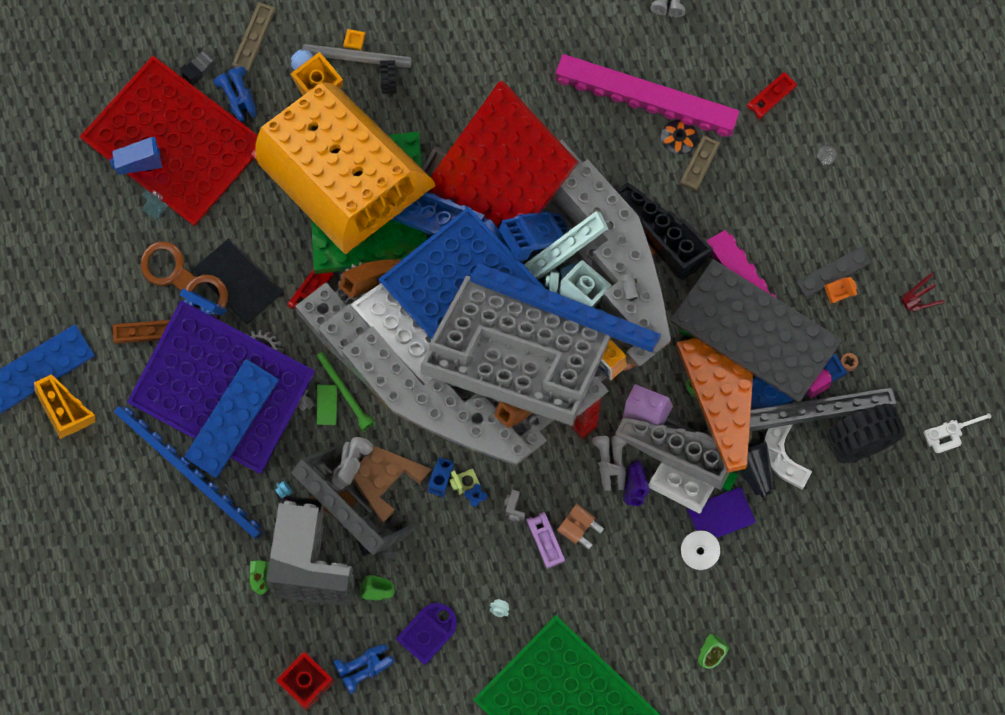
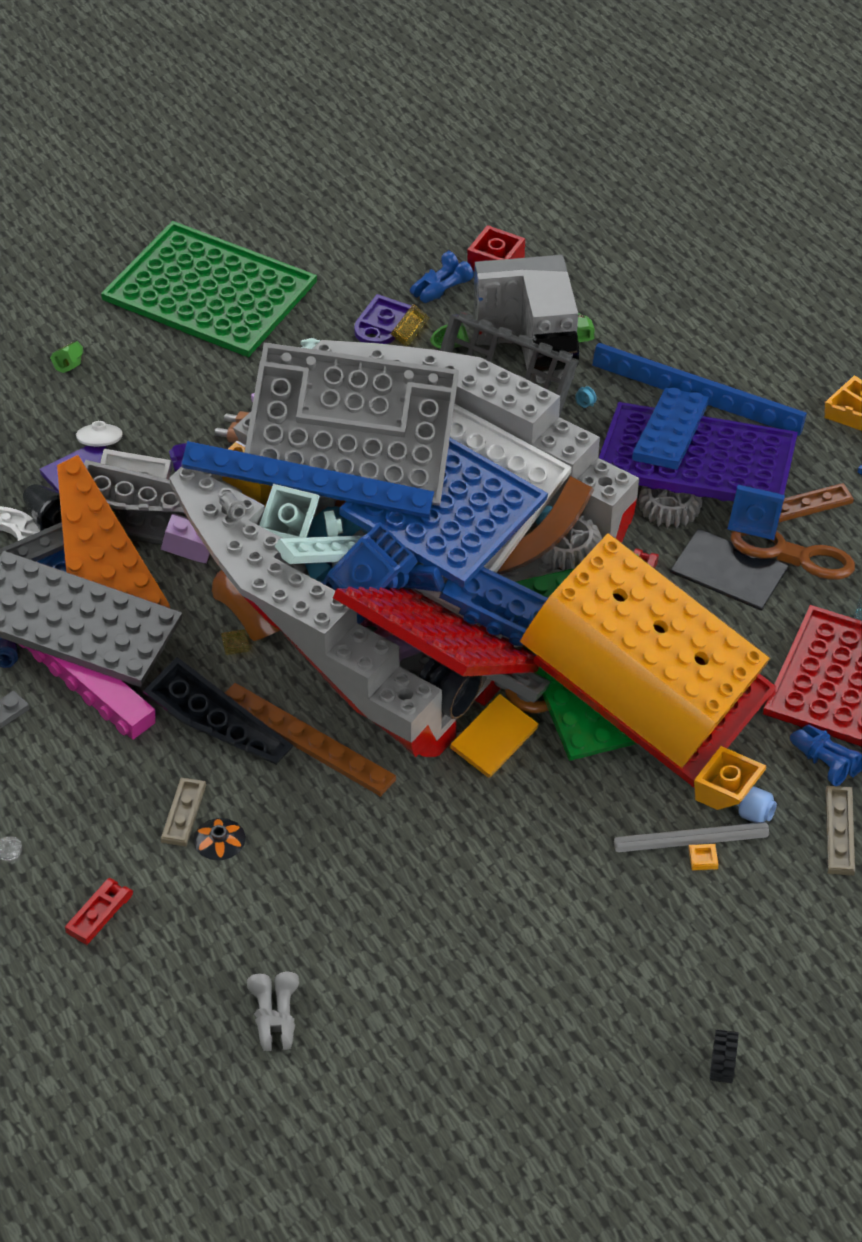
camera: 165 degrees right, 25 degrees down
(388, 77) = (636, 806): black tyre -> none
(406, 615) = (409, 325): none -> clear yellow tile
(646, 95) = (276, 868): dark pink brick -> none

